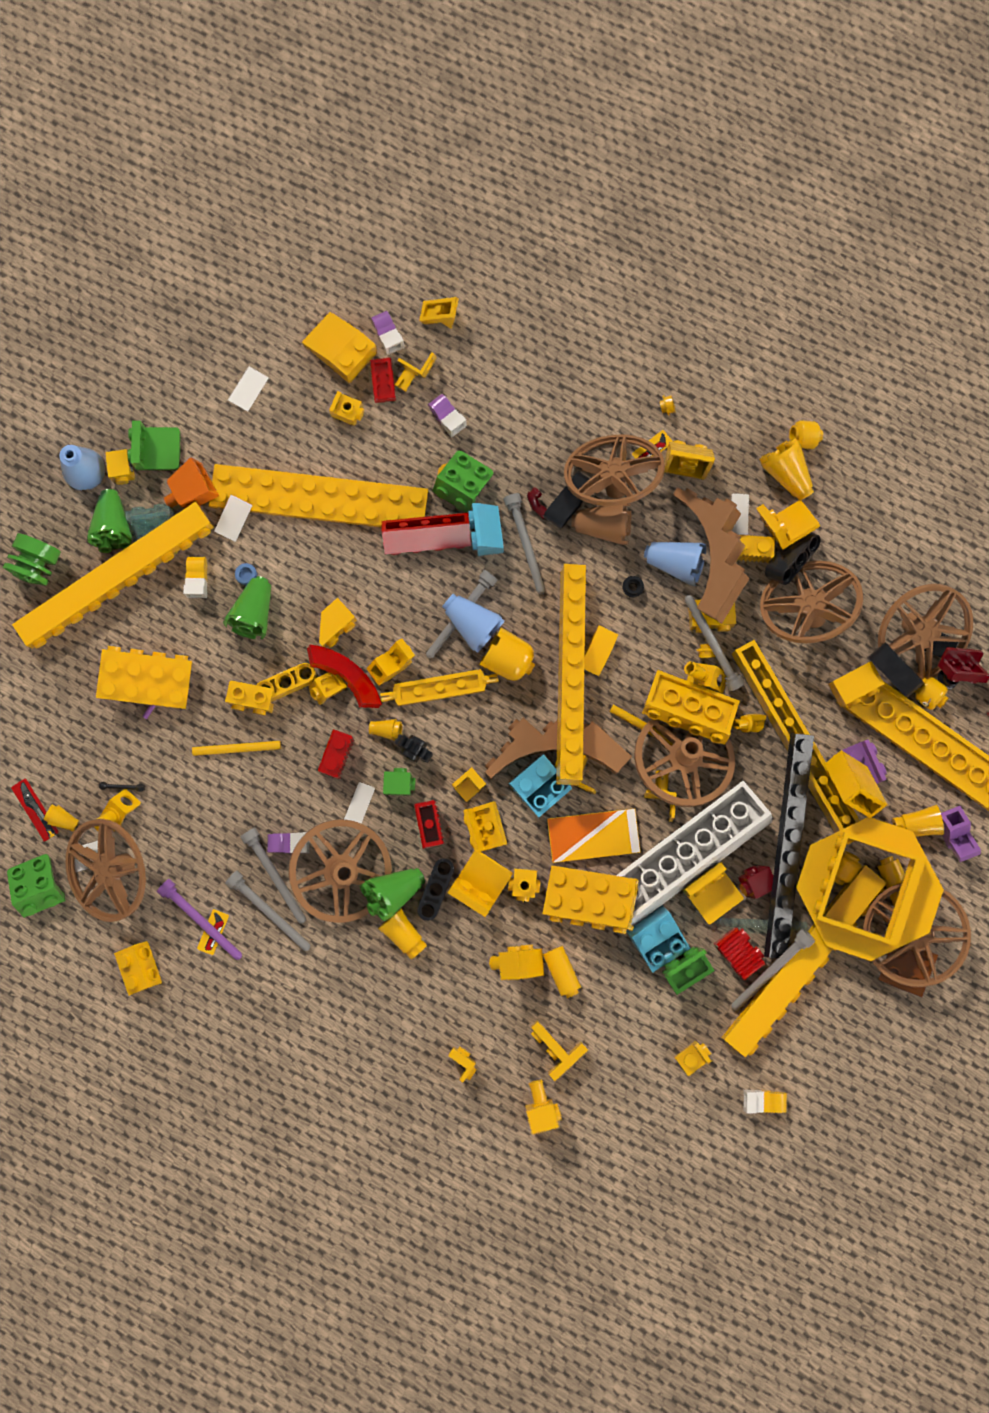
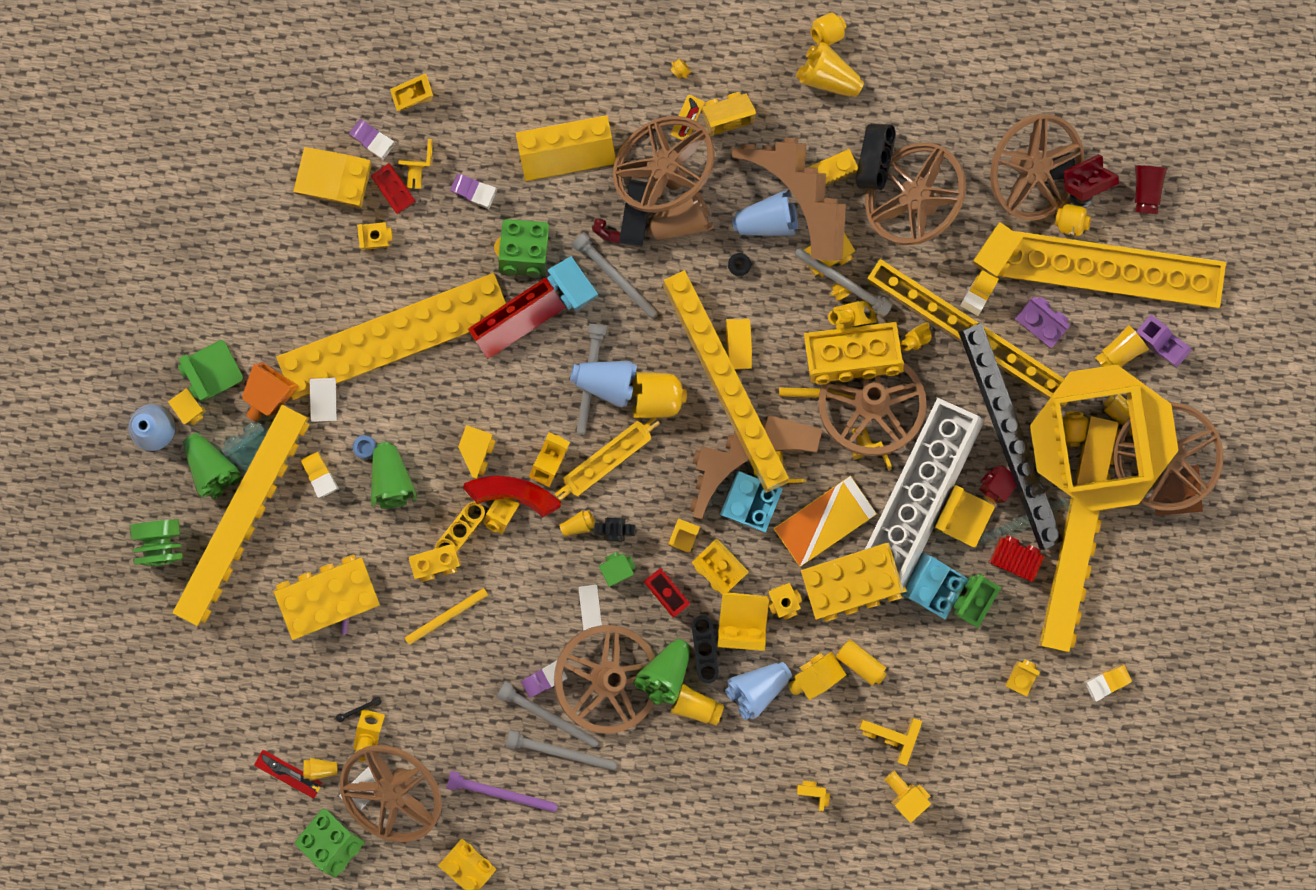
camera: 30 degrees left, 5 degrees up
(218, 921) = (517, 810): yellow sticker -> none
(248, 388) = (266, 264): white sticker -> none
(336, 754) = (544, 573): red brick -> none
(462, 946) = (757, 688): none -> light blue cone
(540, 418) = (566, 148): none -> yellow slope
(742, 502) = (801, 130): white sticker -> none
(788, 524) = (856, 128): yellow bracket -> none
(802, 941) = (1067, 518): light grey piece -> none
(823, 711) = (979, 292): none -> leg
(855, 784) = (1042, 348): yellow brick -> none
(896, 669) = (1027, 218): black beam -> none

